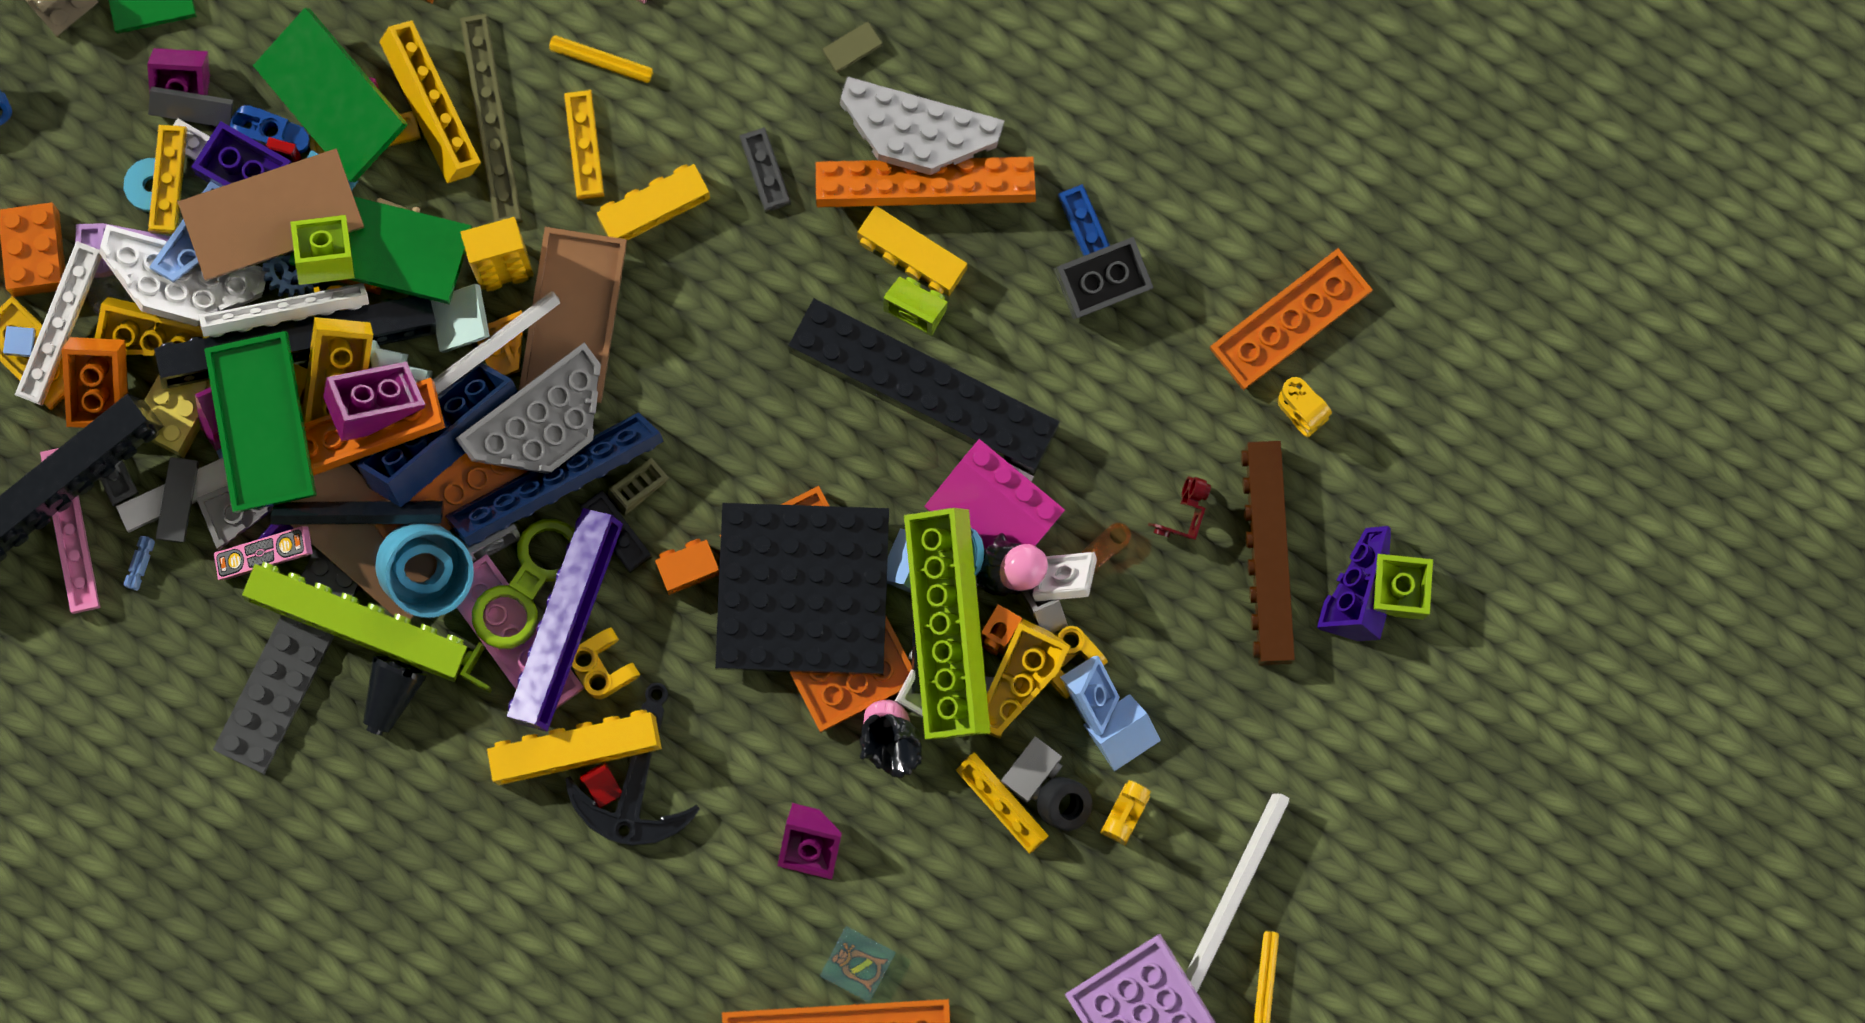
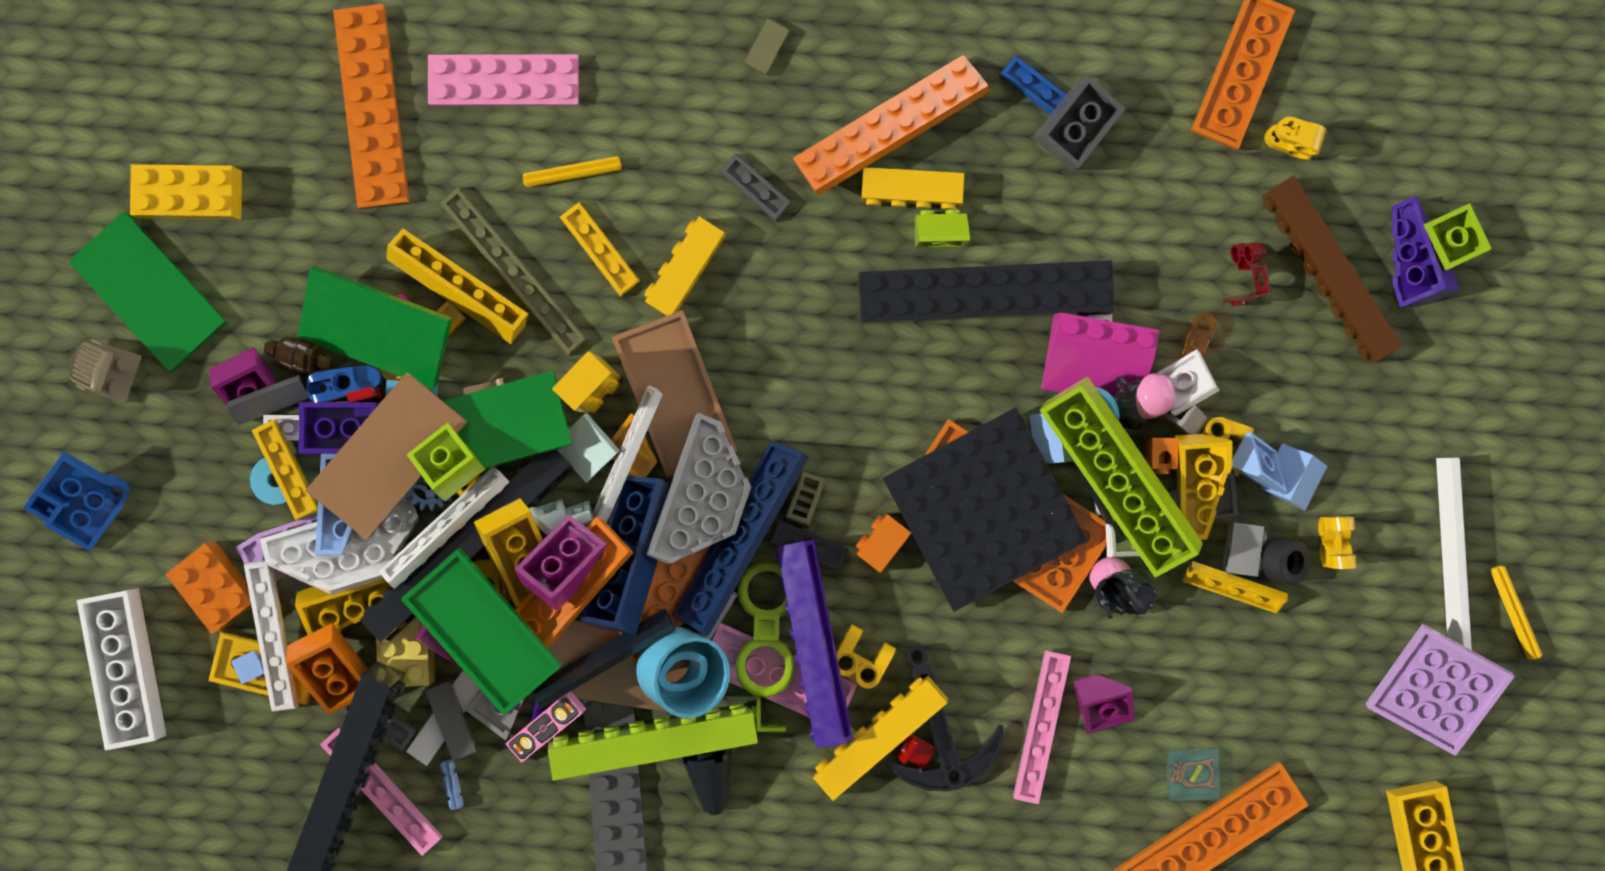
camera: 25 degrees left, 10 degrees up
(244, 82) = (298, 355): none -> dark brown piece
(736, 831) = (1041, 727): none -> bright pink plate
(917, 130) = (858, 86): light grey plate -> none
(1040, 711) = (1227, 504): none -> dark grey tile

